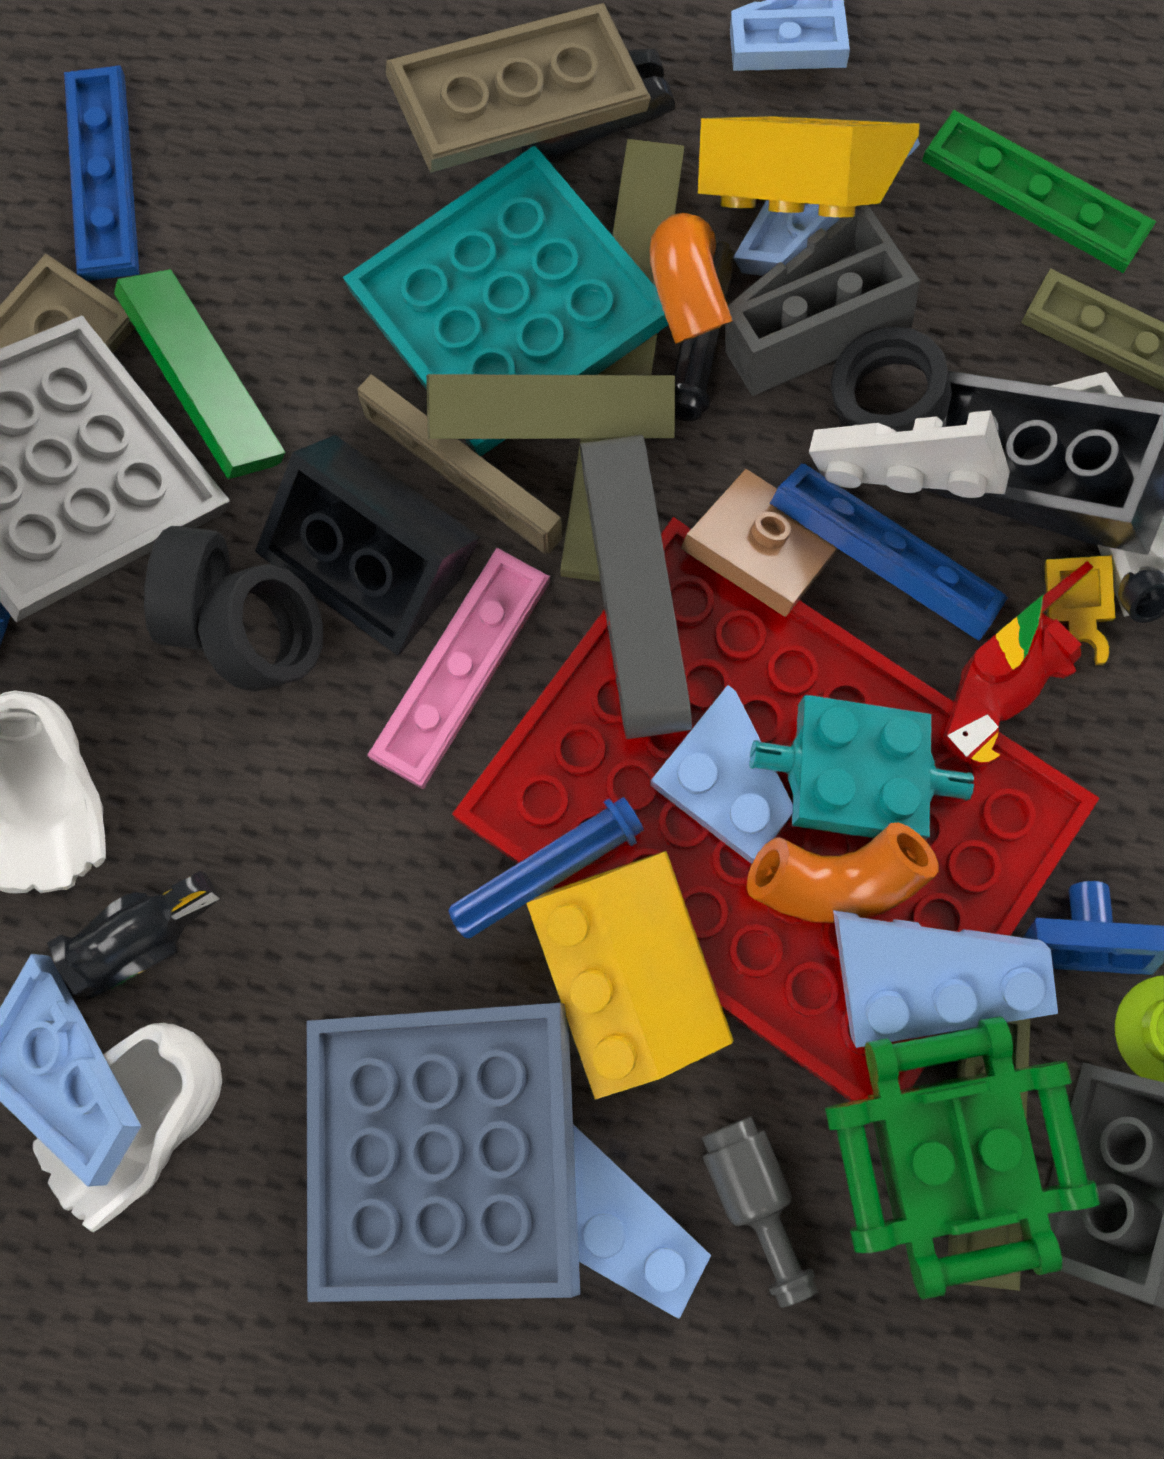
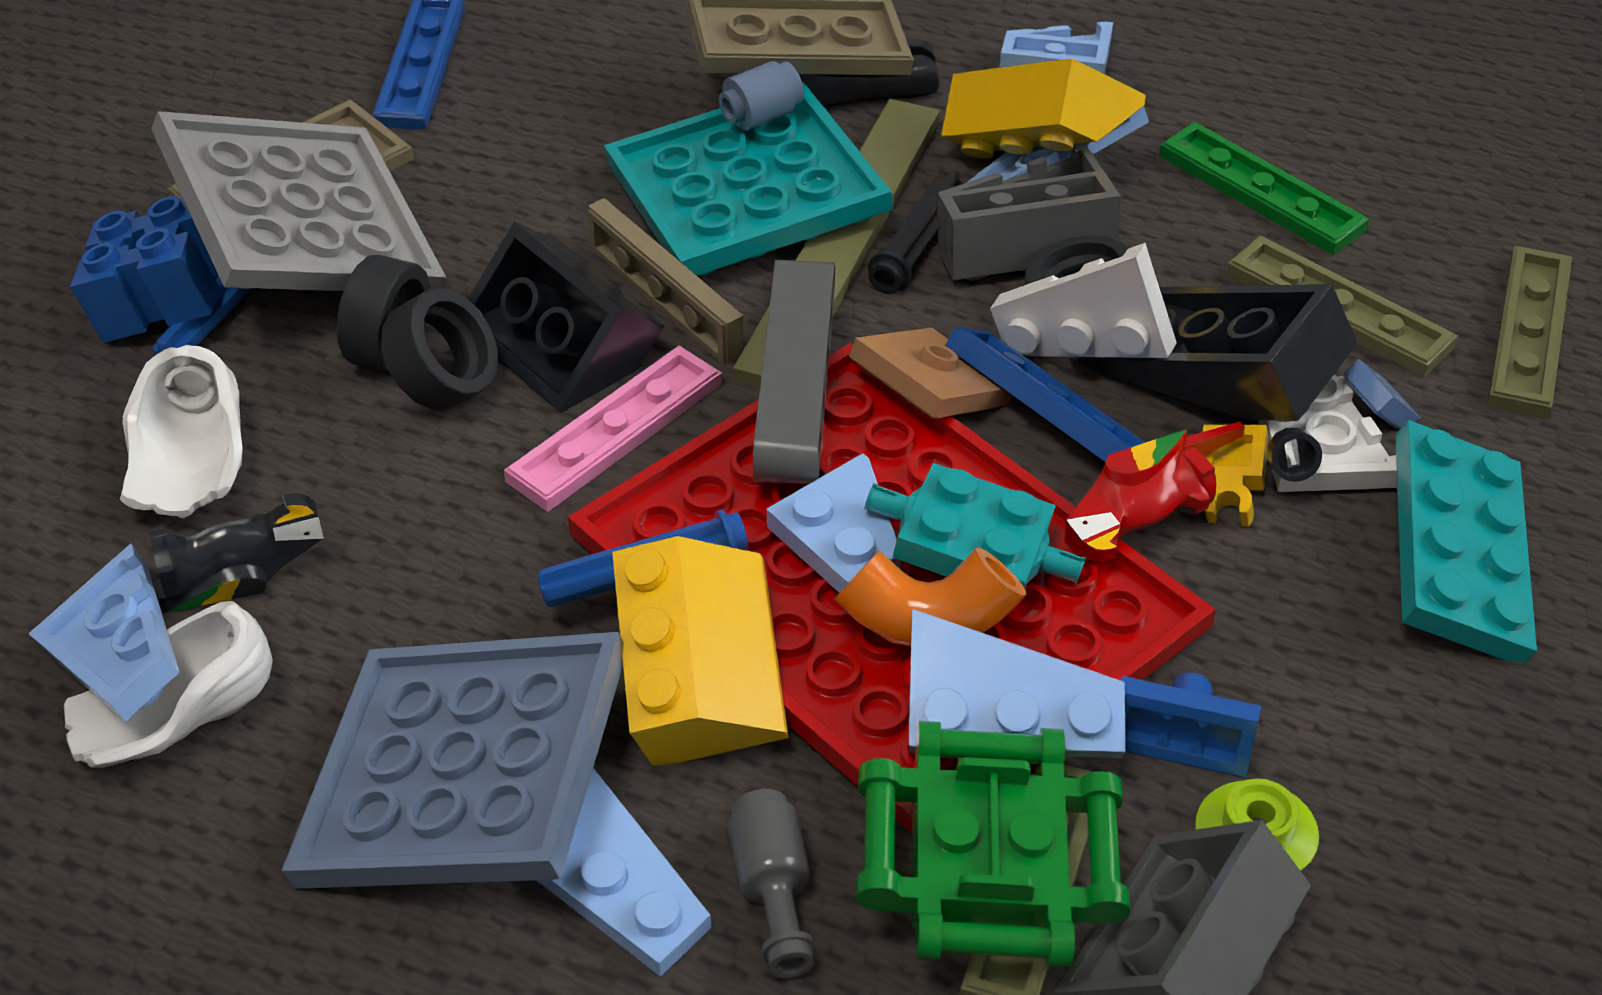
camera: 10 degrees right, 30 degrees down
(199, 373) = (451, 190): tile -> none
(501, 190) = (761, 94): none -> sand blue brick
(549, 406) = (754, 236): olive tile -> none
(686, 276) = (909, 170): orange cylinder -> none

